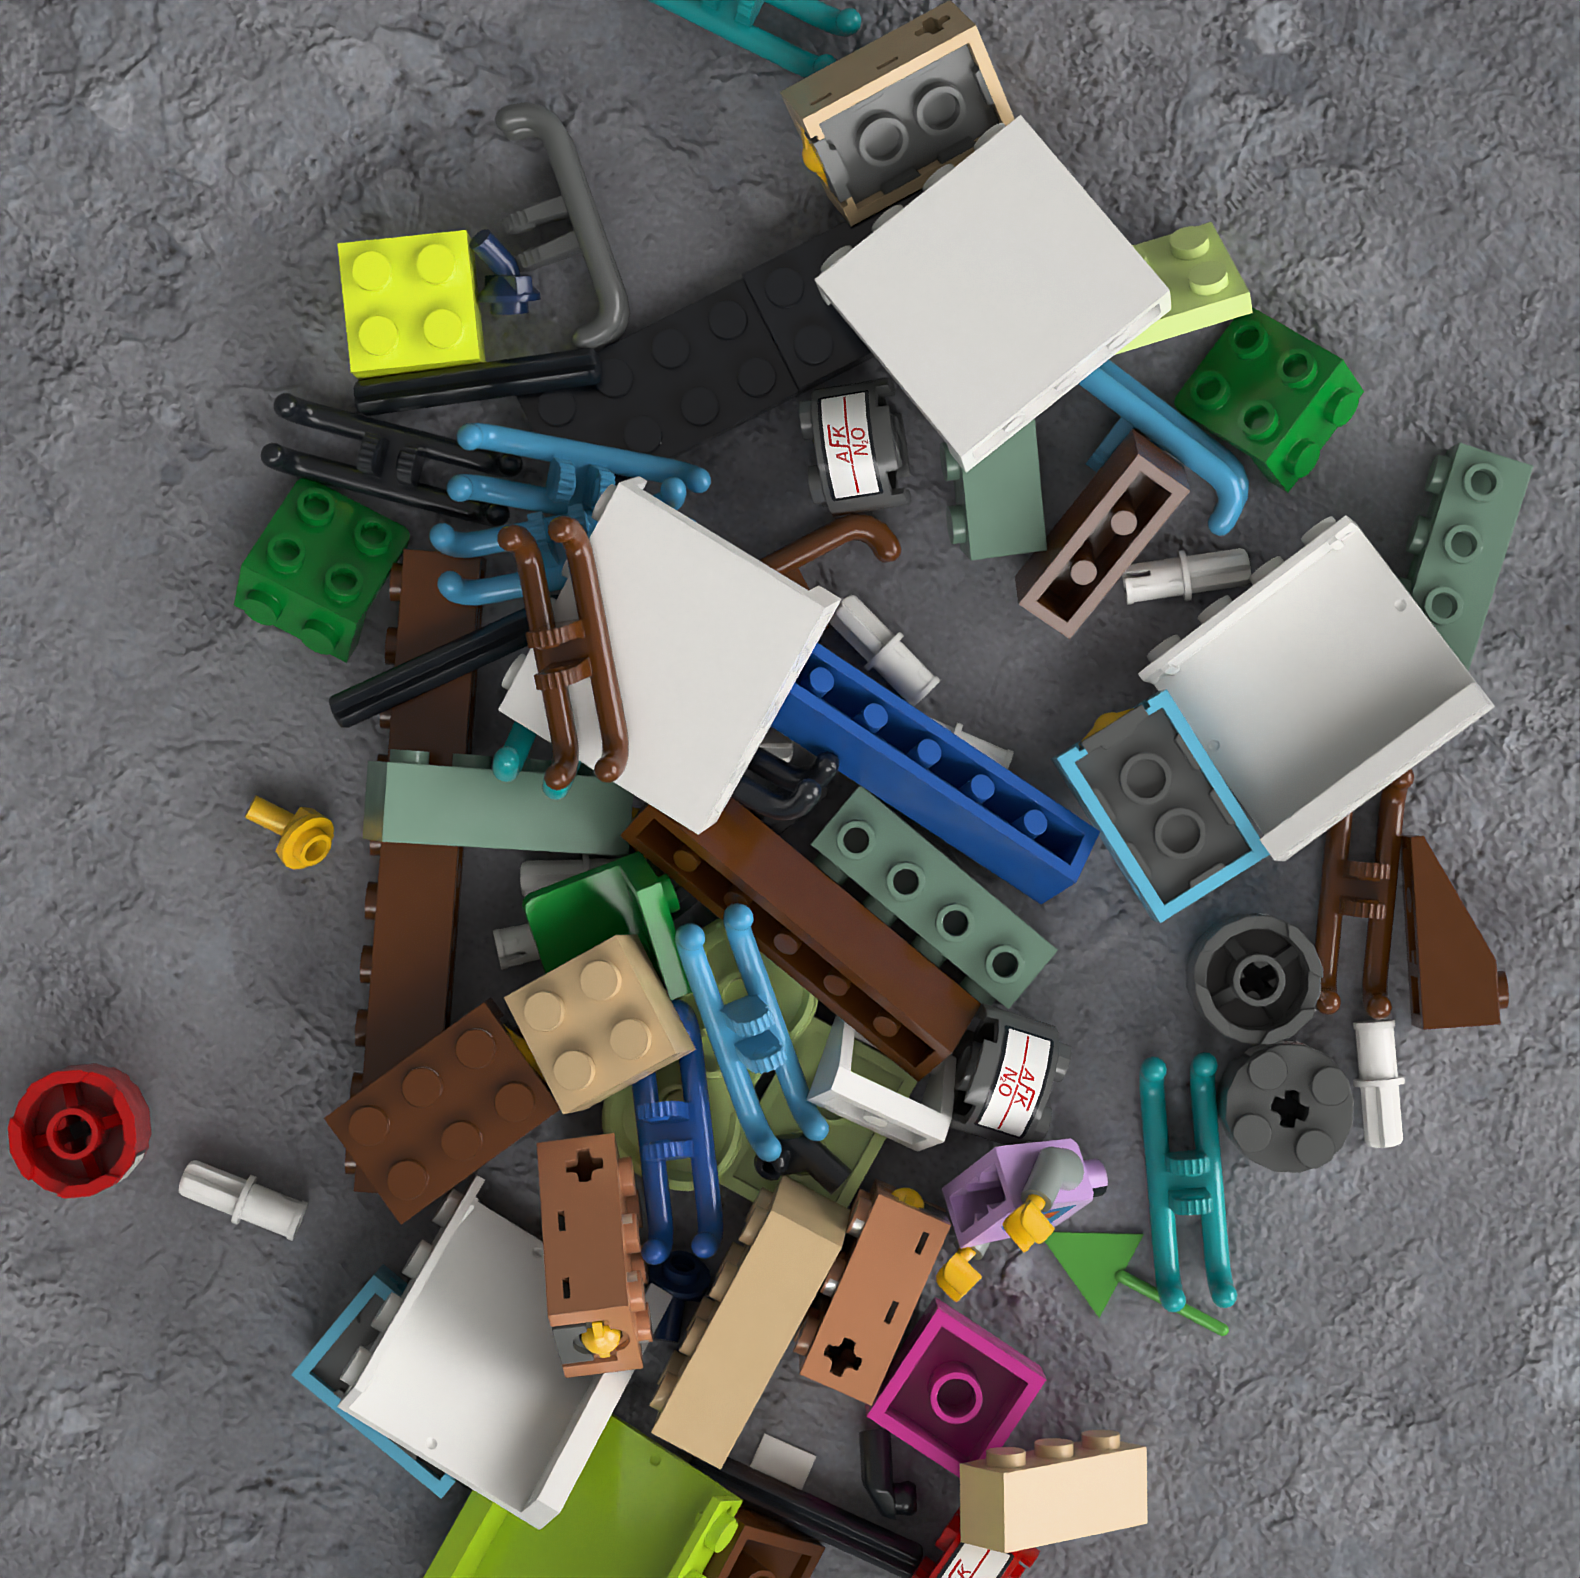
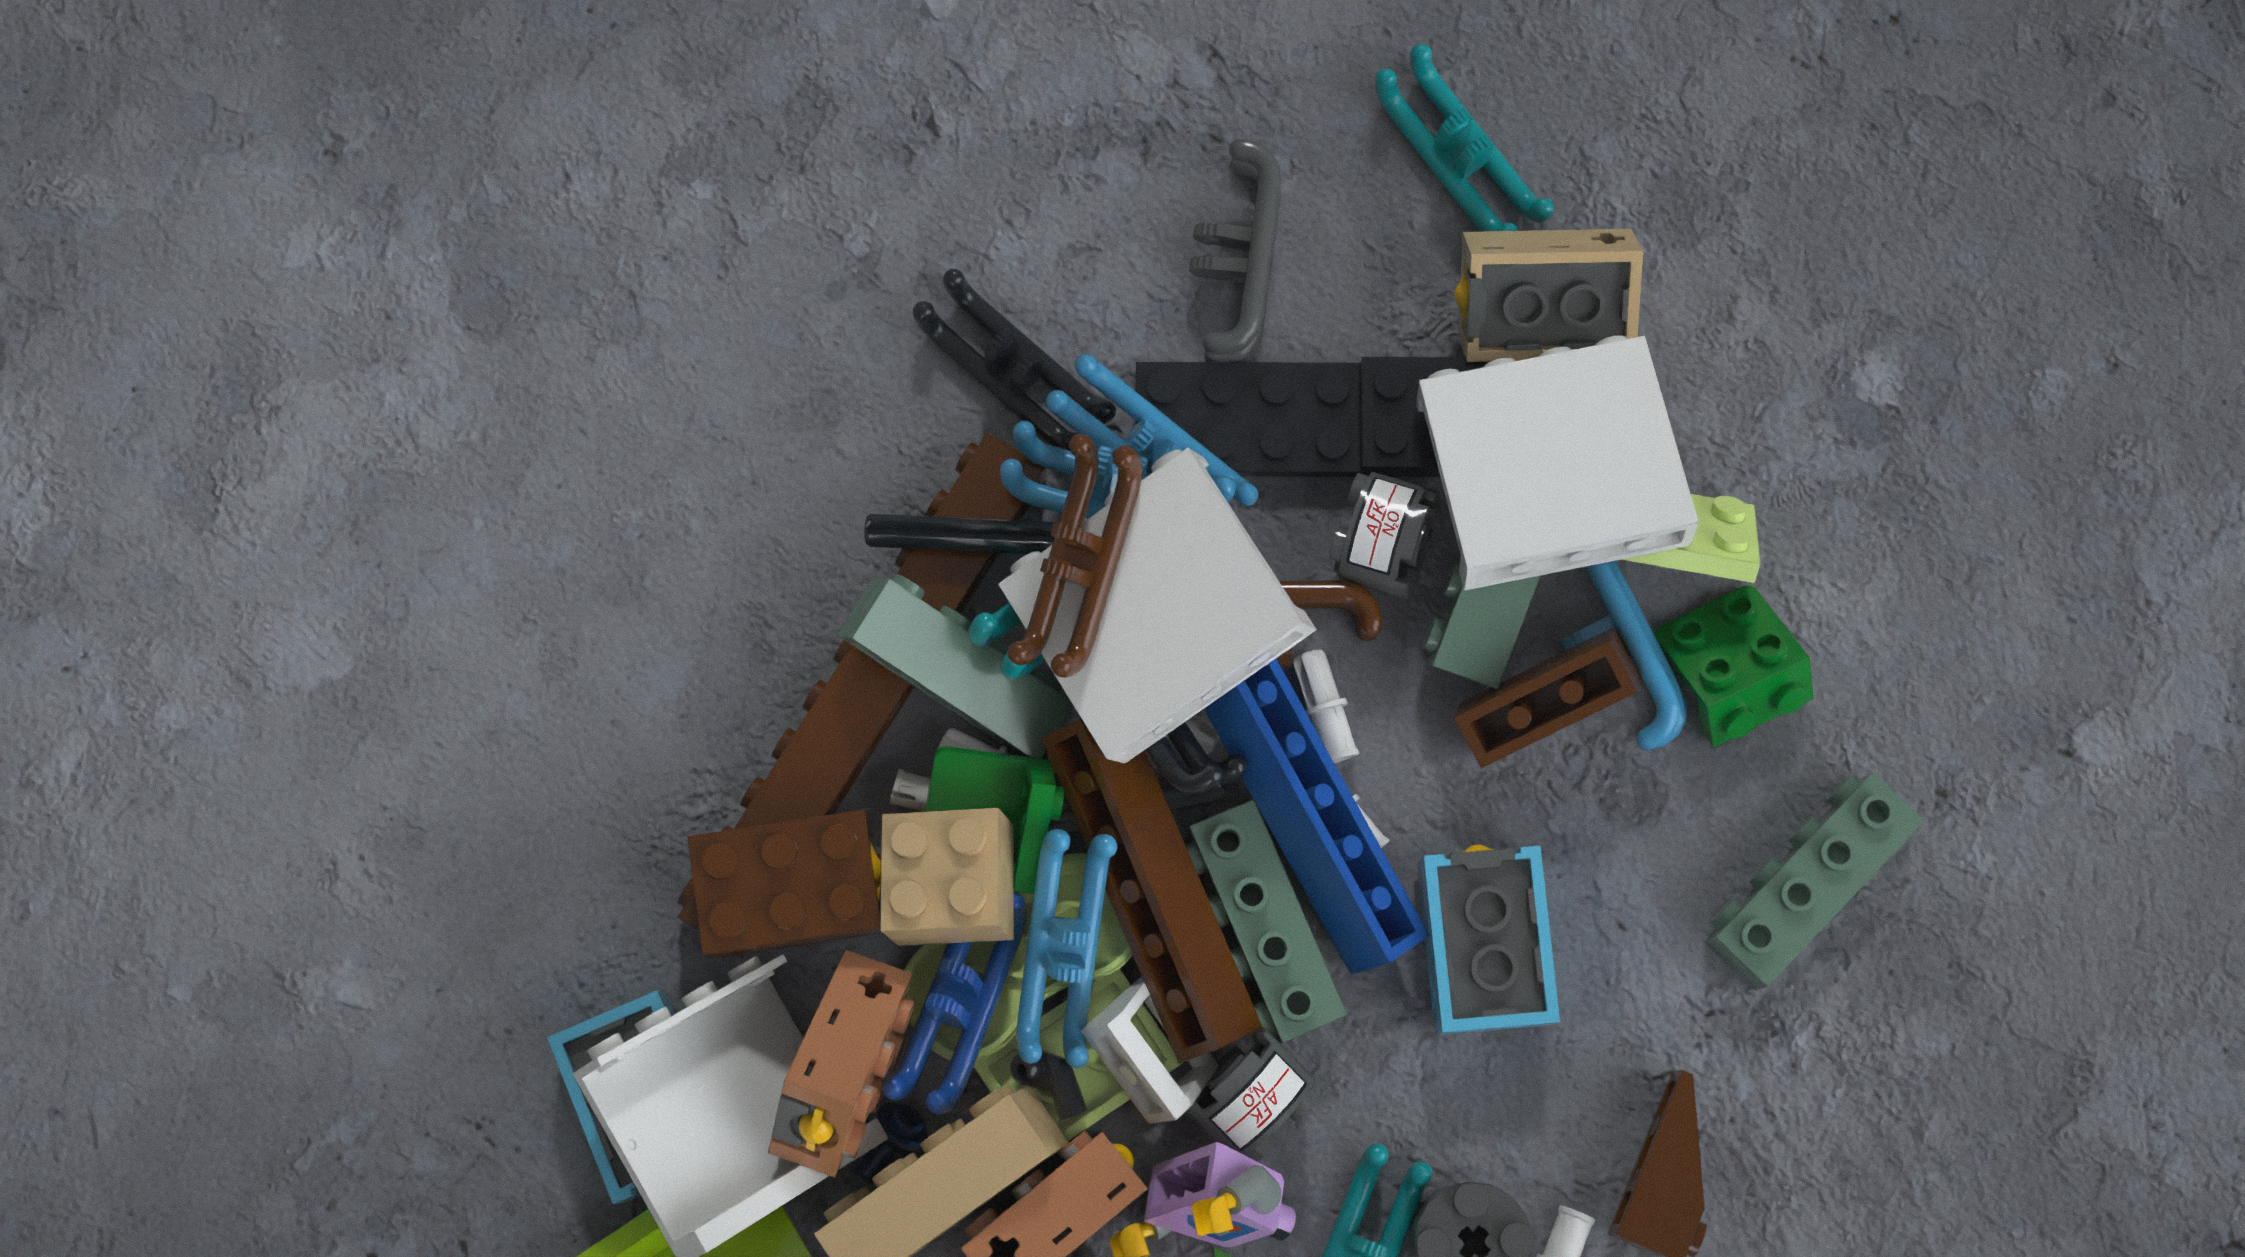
camera: 25 degrees right, 10 degrees down
(42, 1135) = (470, 729): red brick -> none
(242, 1199) = (584, 882): white axle -> none
(299, 832) = (789, 619): yellow plate -> none
(319, 568) = (911, 418): green bracket -> none
(411, 304) = (1091, 254): neon yellow brick -> none
(478, 381) = (1112, 337): black axle -> none
(507, 289) = (1173, 280): dark blue plate -> none
(1186, 575) = (1598, 770): white axle -> none
(1290, 985) = (1516, 1093): dark grey brick -> none
(1316, 685) = (1663, 907): white panel -> none
(1362, 892) = (1619, 1094): reddish brown piece -> none

